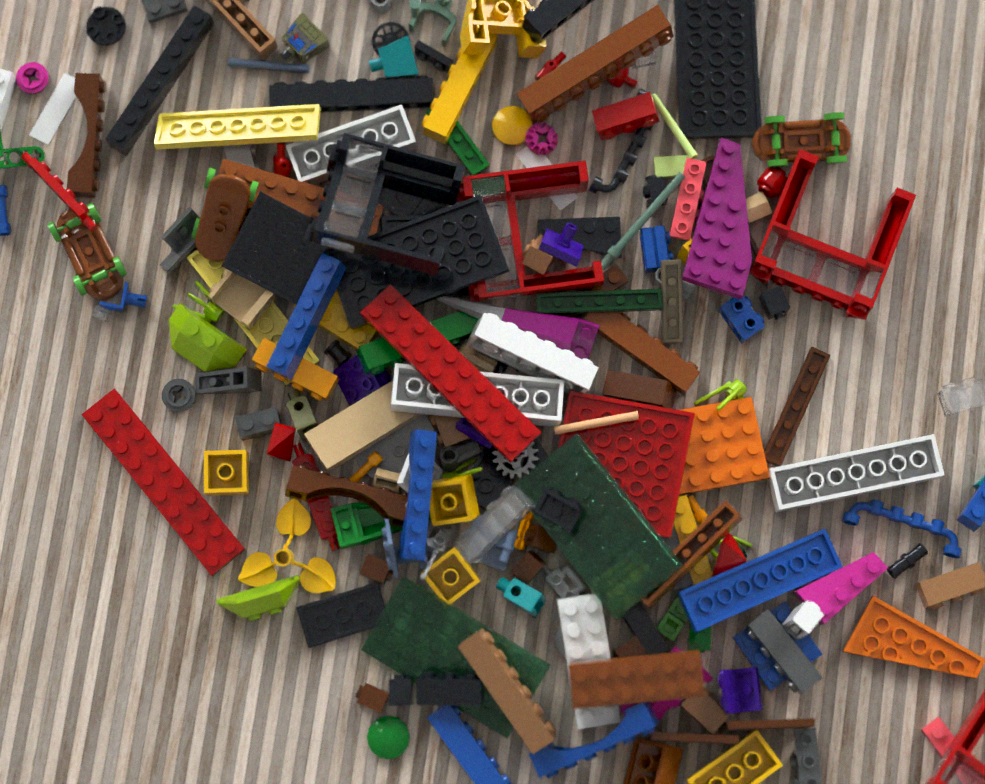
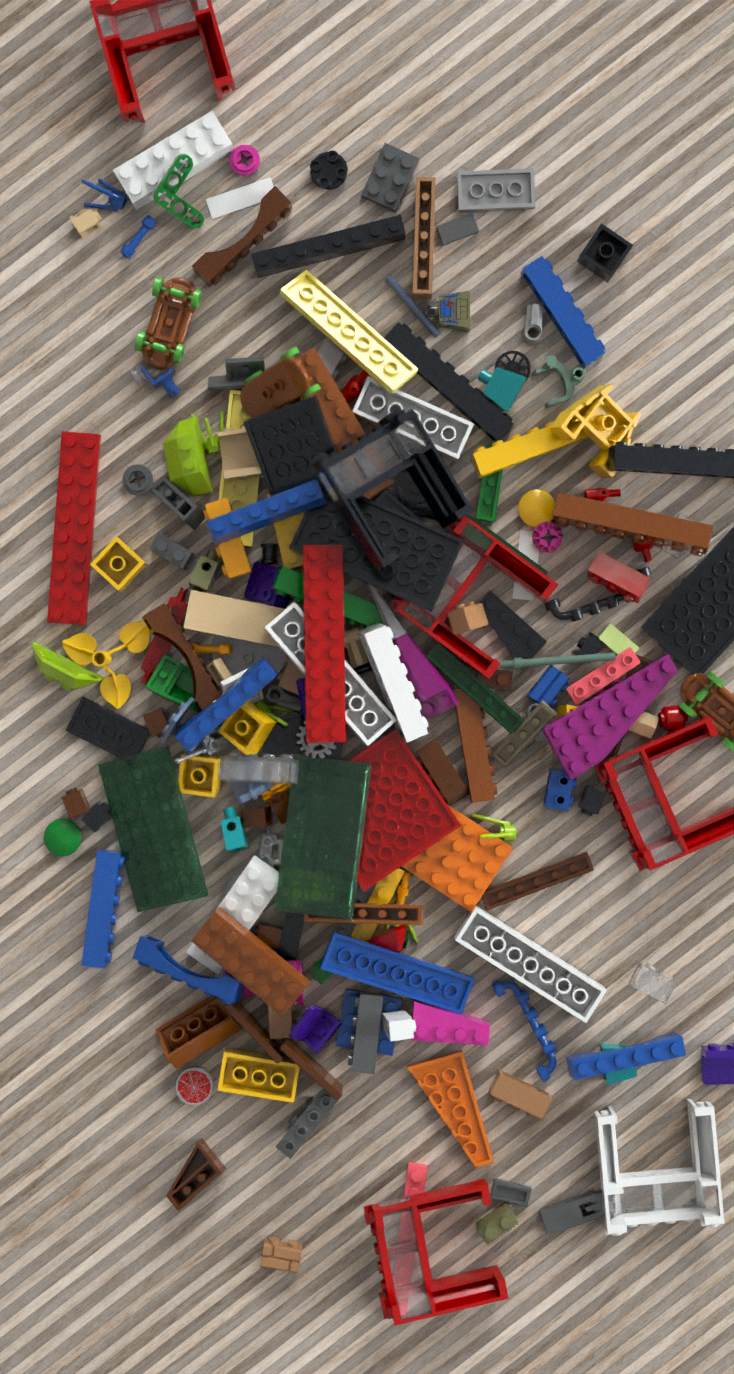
camera: 45 degrees right, 10 degrees up
(55, 185) = (187, 270): red plate -> none
(281, 442) = (173, 579): red slope -> none
(429, 54) = (527, 401): black plate -> none
(449, 689) = (128, 848): black brick -> none
(508, 691) = (163, 885): medium nougat brick -> none
(558, 509) = (307, 803): black bracket -> none
(562, 245) = (486, 626): dark purple tile -> none
(596, 422) = (391, 768): light nougat piece -> none
(673, 620) = (317, 941): bright green slope -> none
(674, 128) = (644, 616): yellowish green piece -> none
(907, 561) = (507, 1050): black pin -> none

